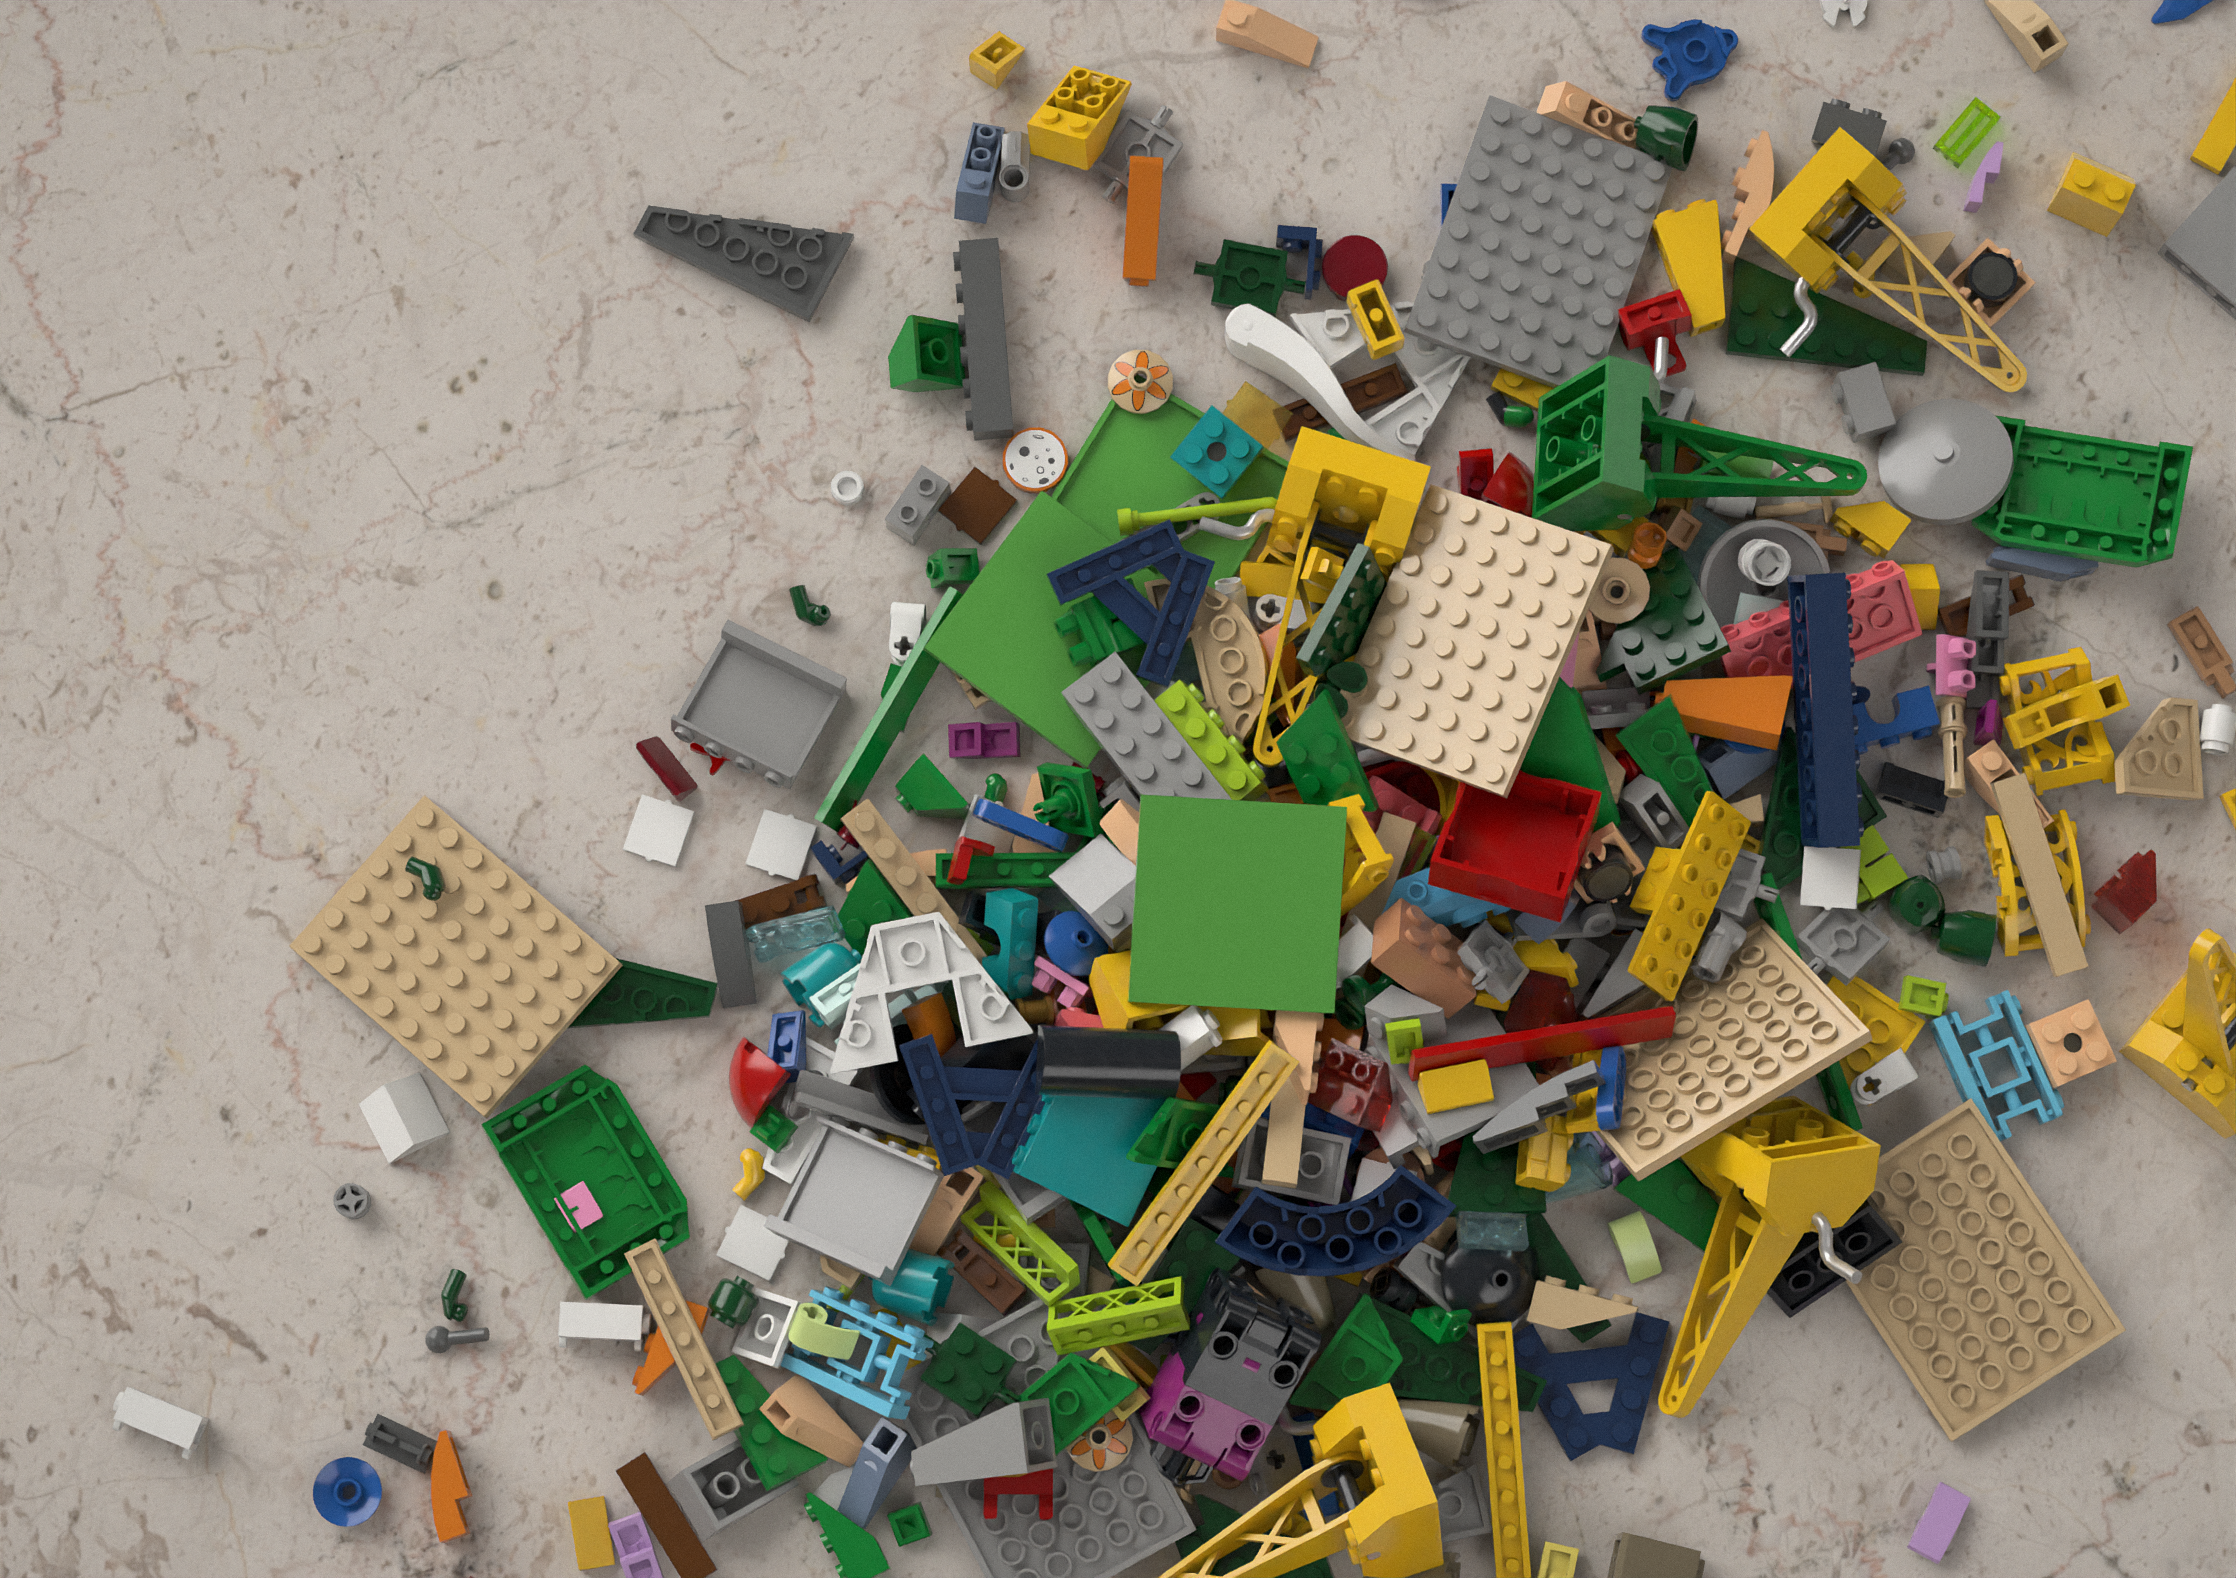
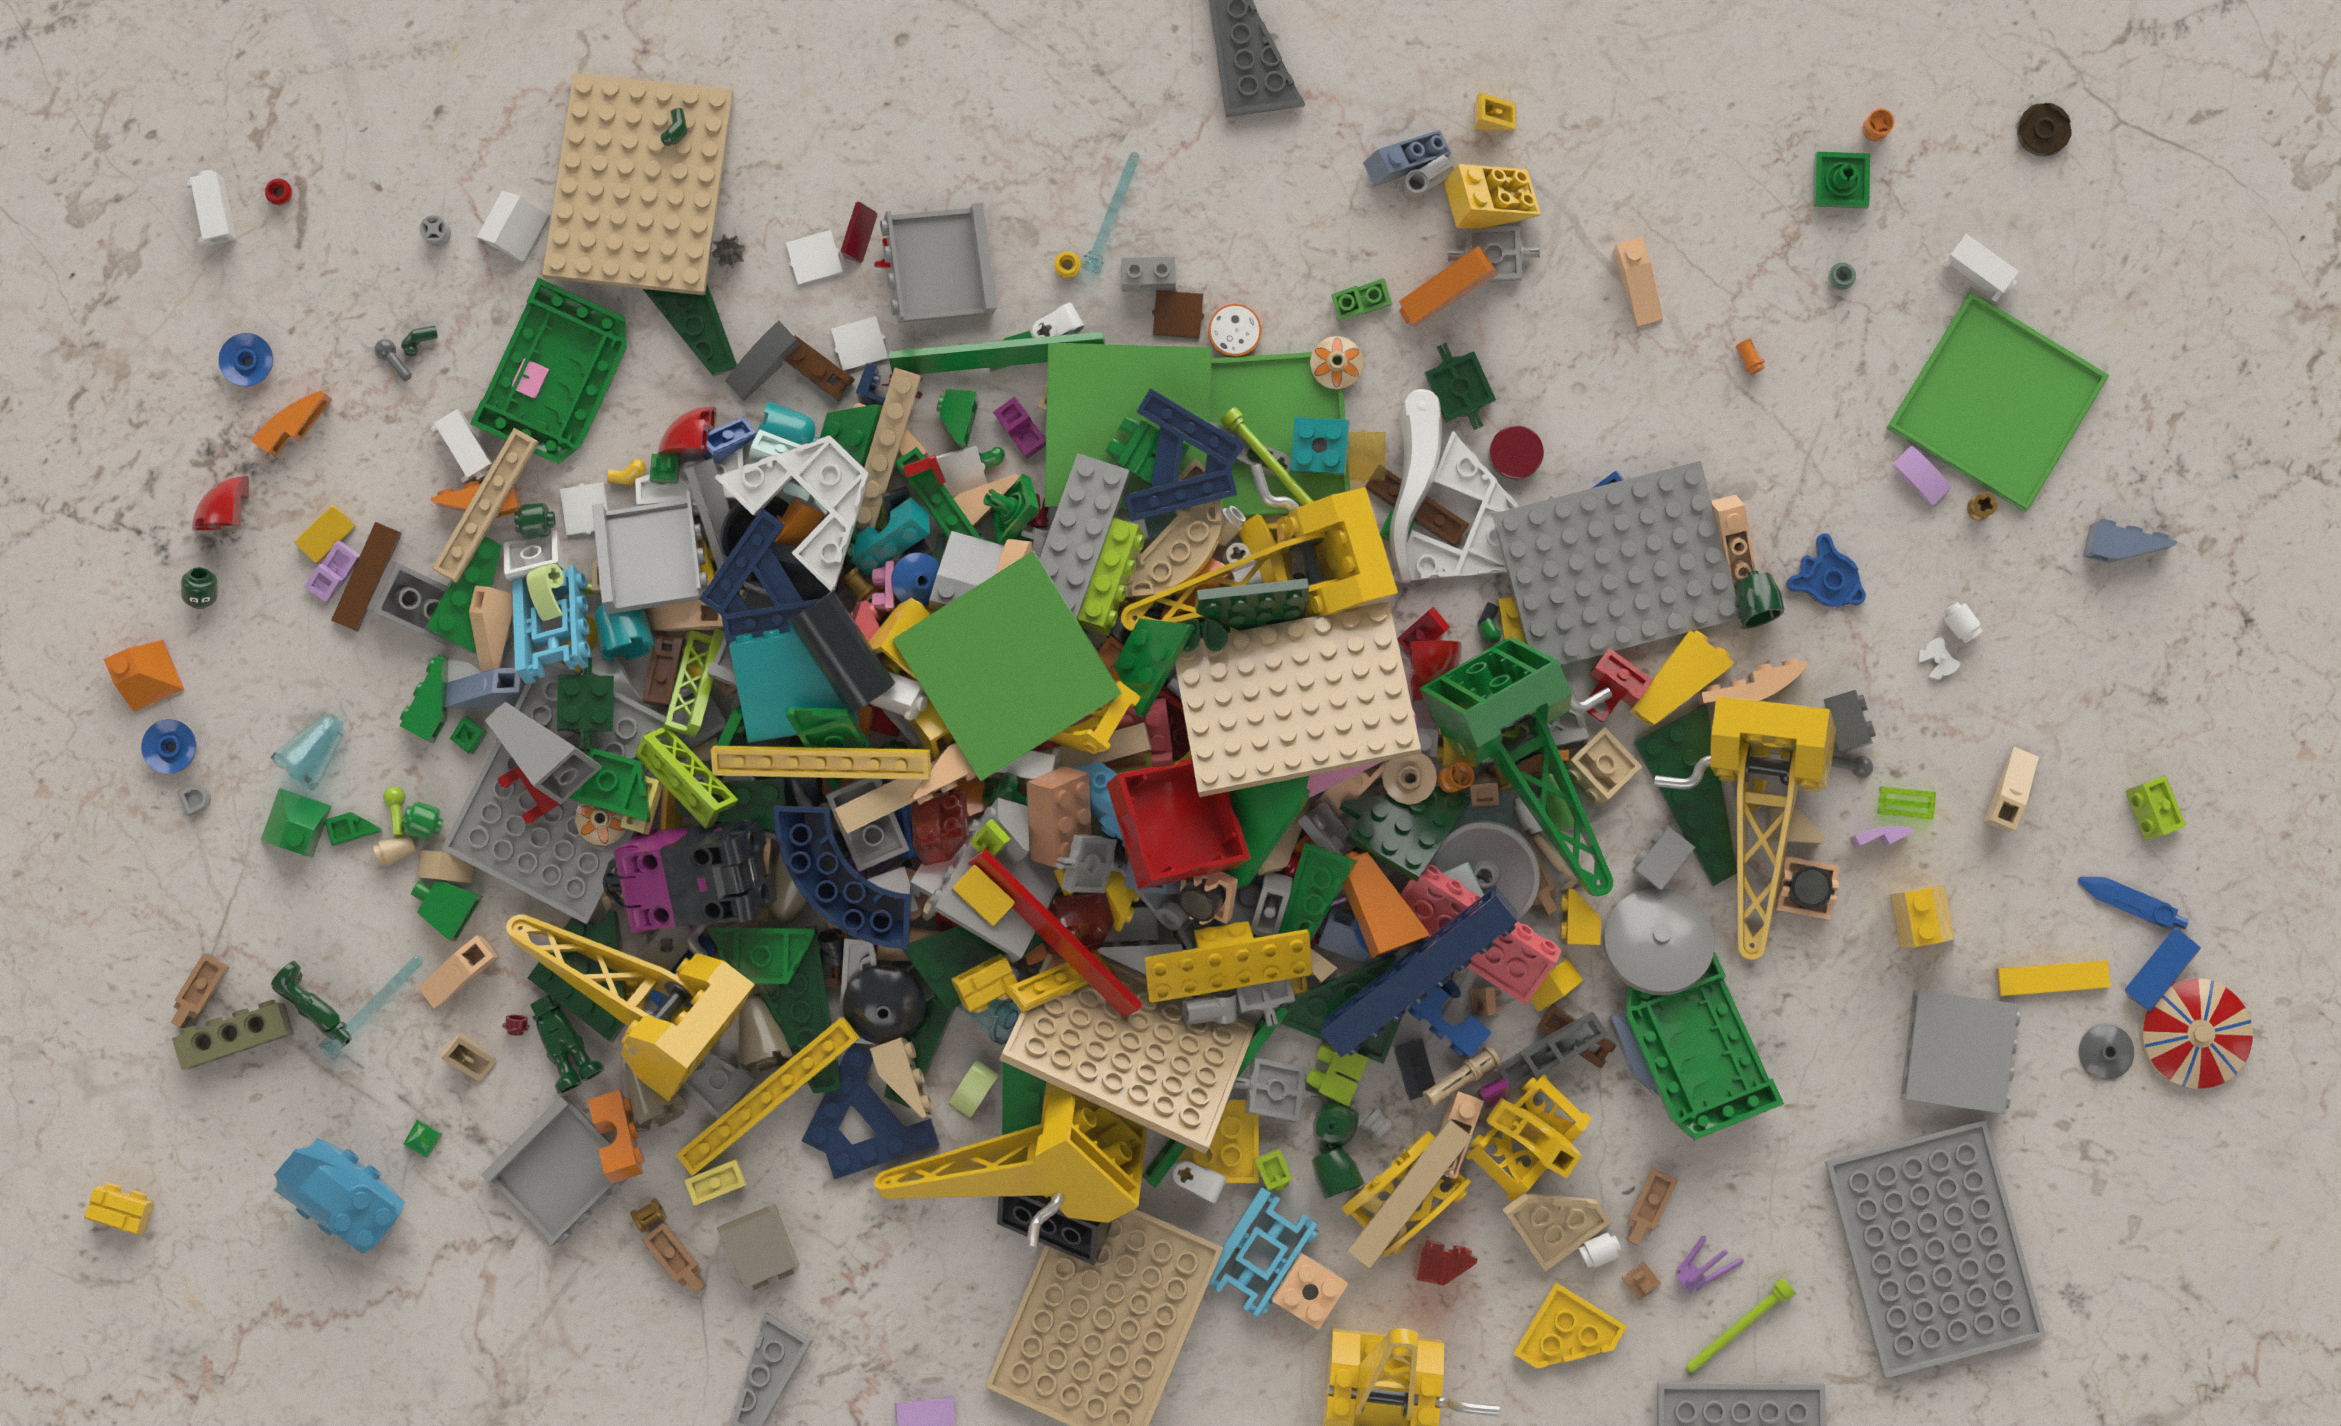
camera: 55 degrees right, 5 degrees up
(182, 1334) = (273, 186): none -> red plate
(400, 1443) = (300, 370): dark grey hinge -> none
(601, 915) = (728, 244): none -> clear smoke gear
(795, 933) = (803, 392): clear light blue plate -> none
(806, 610) = (1028, 250): dark green arm -> none
(845, 571) = (1064, 257): none -> yellow plate
(847, 488) = (1129, 220): white tile -> none
(863, 551) = (1093, 260): none -> clear light blue piece
(926, 356) = (1255, 210): green slope -> none
(952, 566) = (1123, 325): green bracket -> none
(985, 339) = (1294, 240): dark grey brick -> none
(1020, 825) = (973, 489): blue beam -> none
(1092, 314) = (1362, 299): none -> bright green slope
(1294, 240) = (1507, 399): dark blue bracket -> none
(1322, 568) = (1279, 567): yellow tile -> none
(1375, 319) = (1485, 489): yellow brick -> none
(1440, 1324) = (827, 993): green bracket -> none
(1491, 1231) = (910, 985): clear light blue plate -> none
(1528, 1113) = (999, 956): slope -> none
(1611, 1094) = (1056, 1000): blue beam -> none
(1732, 398) = (1602, 767): none -> tan plate
(1764, 562) = (1496, 863): white wheel -> none
(1830, 877) = (1311, 1054): white piece -> none
(1890, 674) = (1483, 1001): none -> medium nougat tile
(1951, 665) = (1517, 1040): bright pink hips -> none

